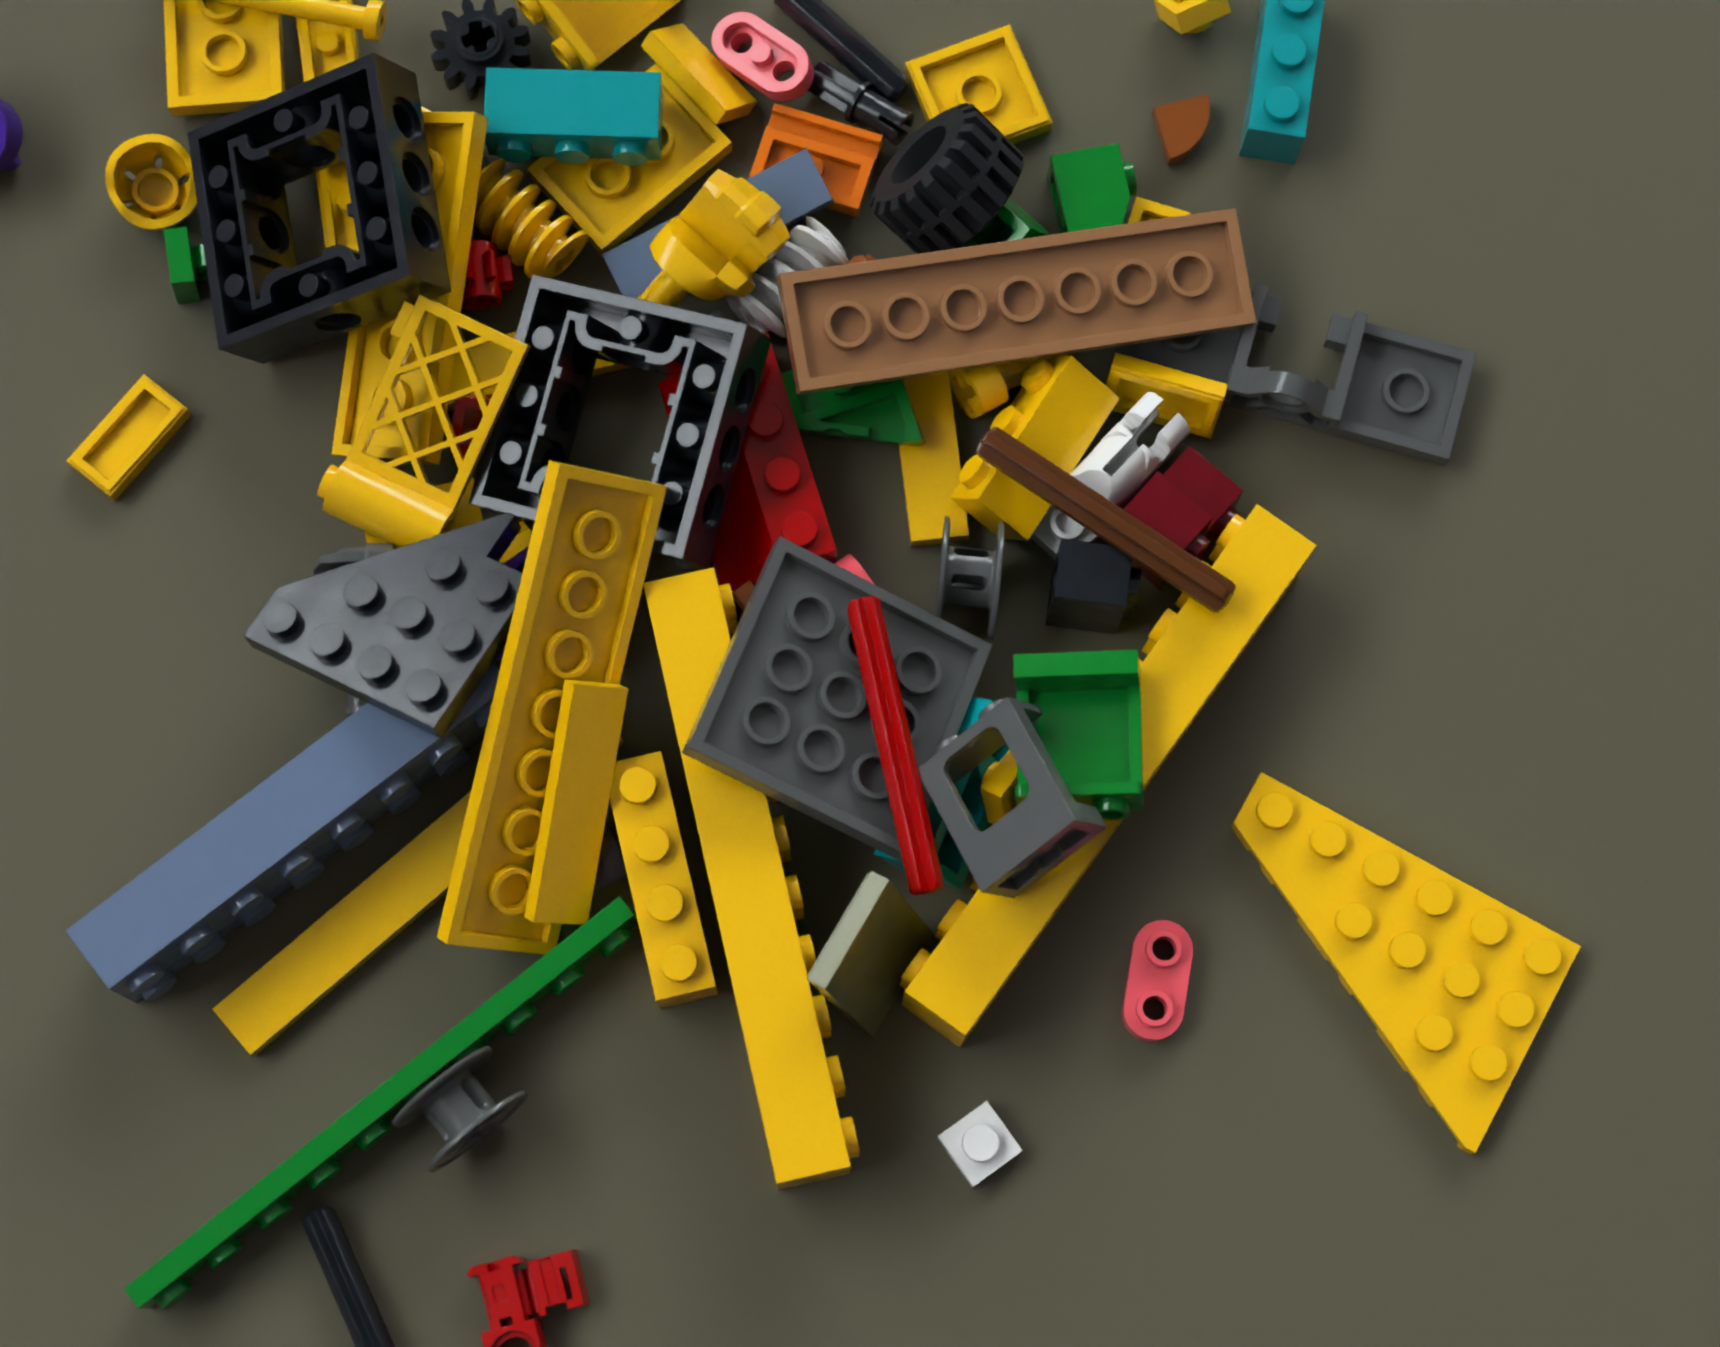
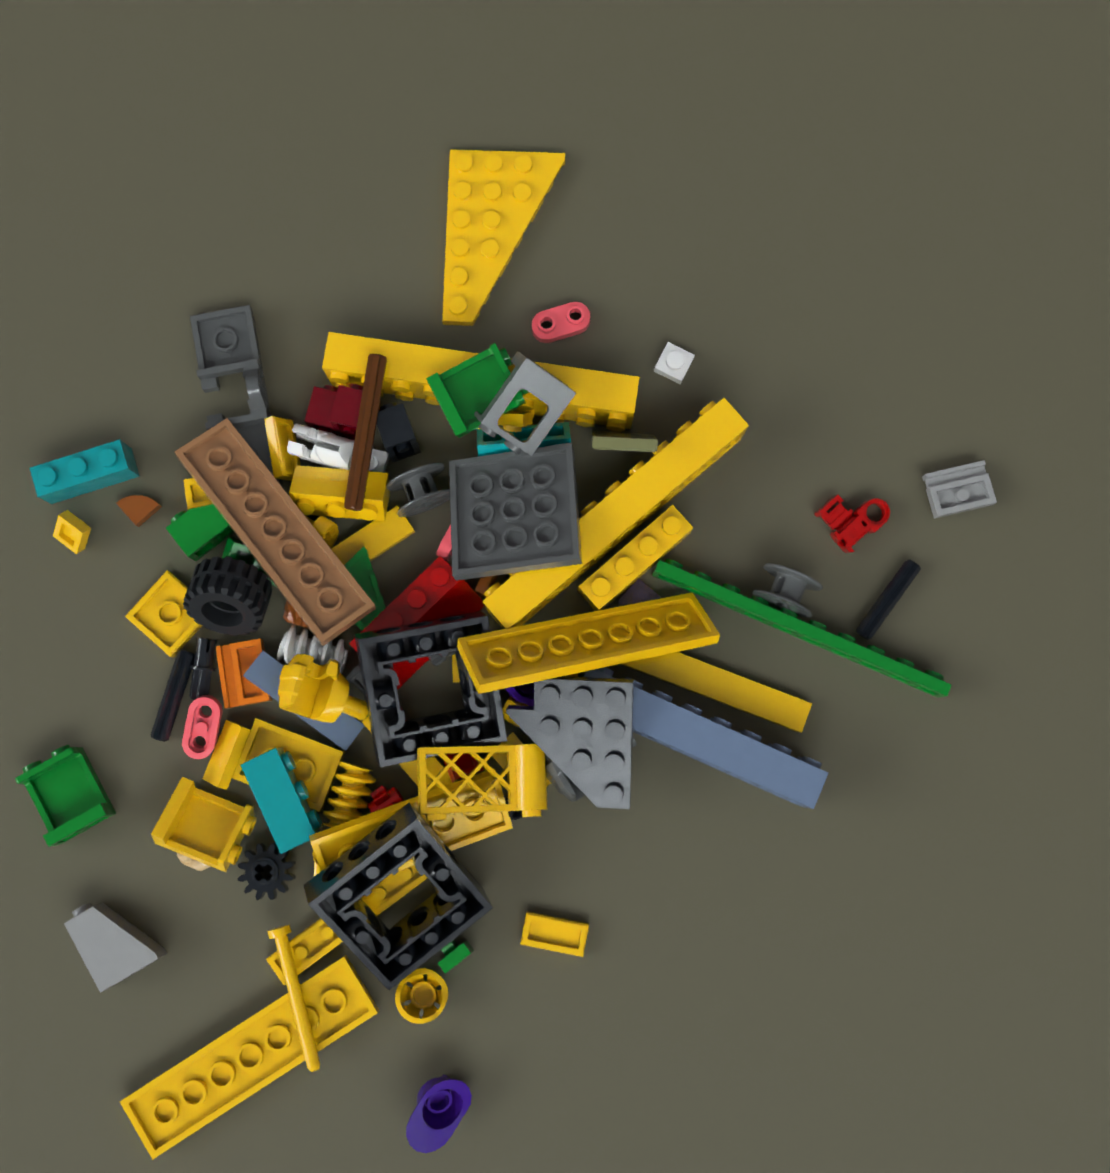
camera: 115 degrees left, 5 degrees up
(576, 802) = (623, 610): yellow tile -> none
(895, 746) = (524, 472): red axle -> none

